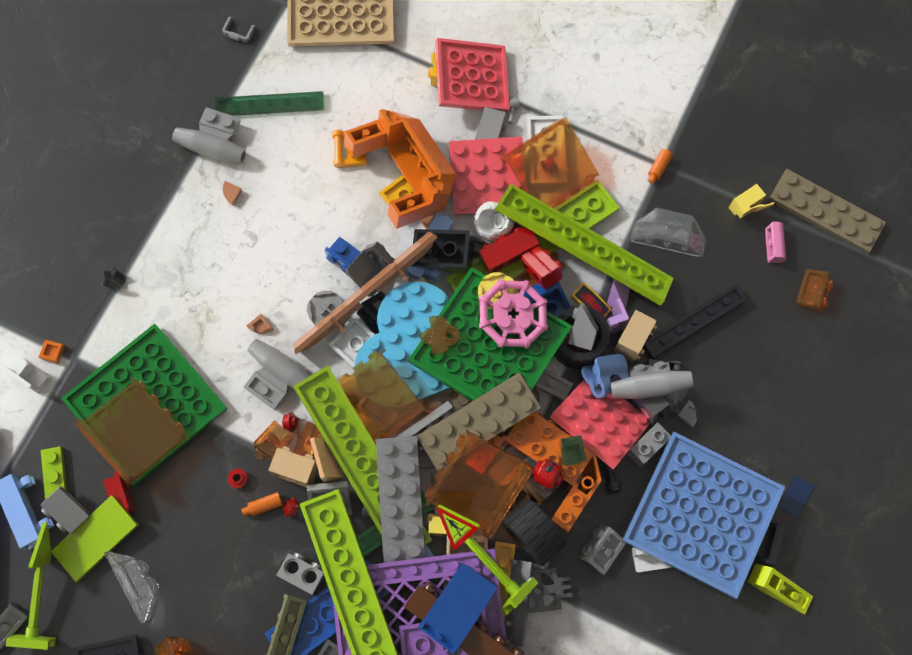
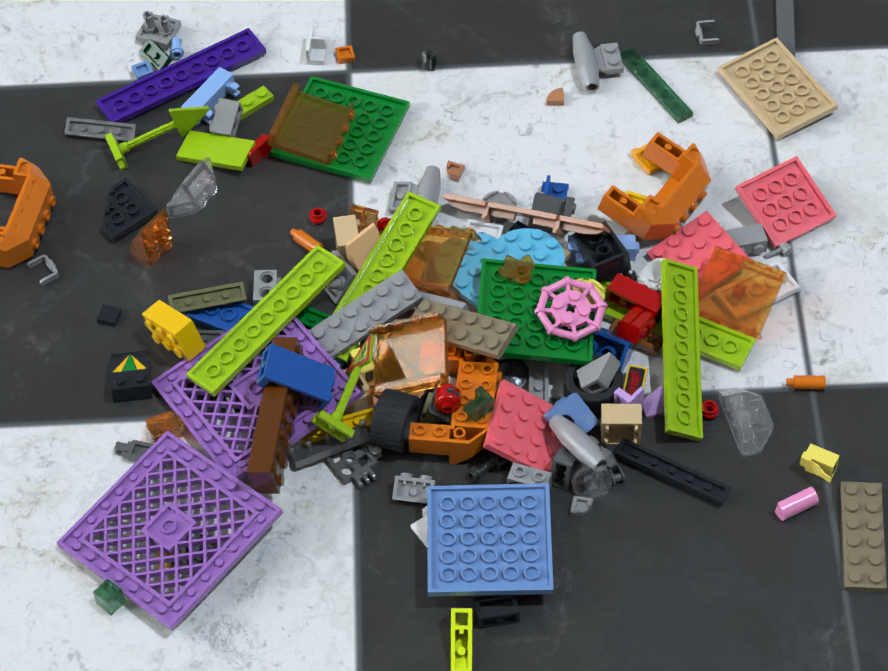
camera: 65 degrees right, 20 degrees down
(649, 252) = (710, 405): none -> red plate
(796, 496) = (558, 624): dark blue sticker -> none
(815, 289) = (771, 556): clear orange bracket -> none

